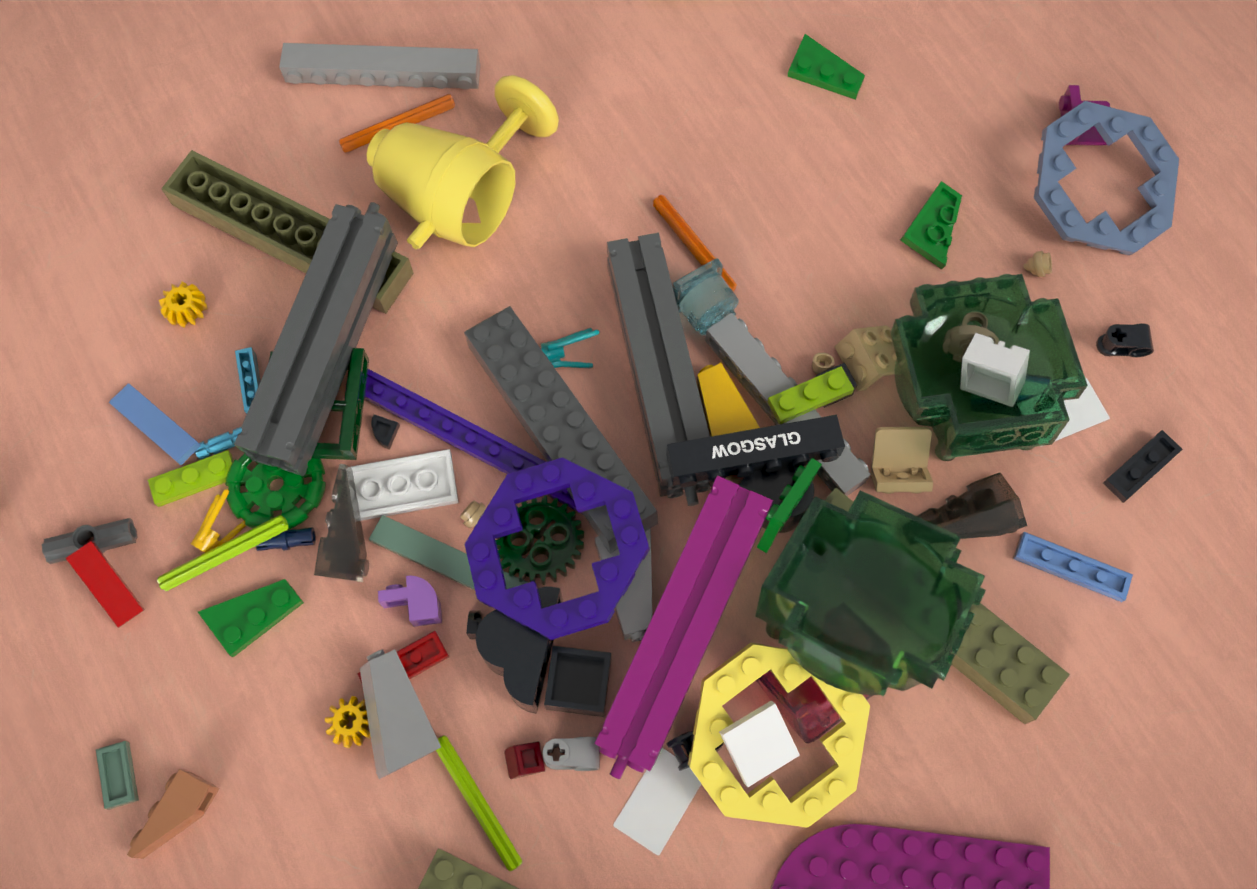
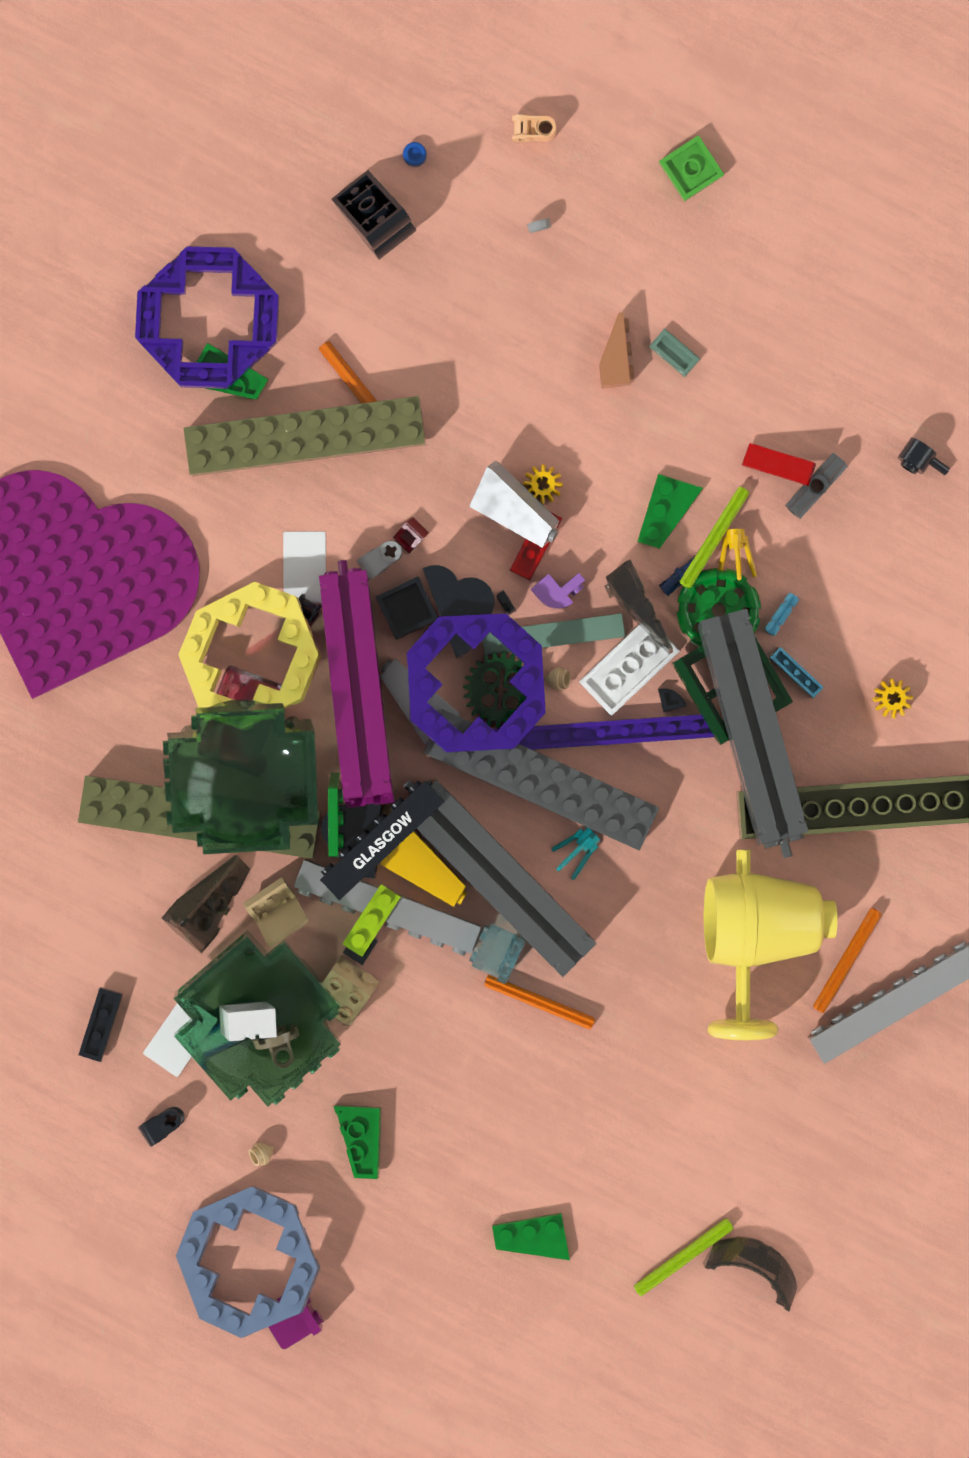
camera: 145 degrees right, 20 degrees up
(155, 424) = (839, 596): medium blue tile -> none
(190, 479) = (782, 575): lime plate -> none
(478, 804) = (422, 487): lime axle -> none
(759, 743) = (258, 638): white tile -> none
(824, 358) = (375, 962): tan hinge -> none
(1073, 567) = (112, 912): medium blue tile -> none

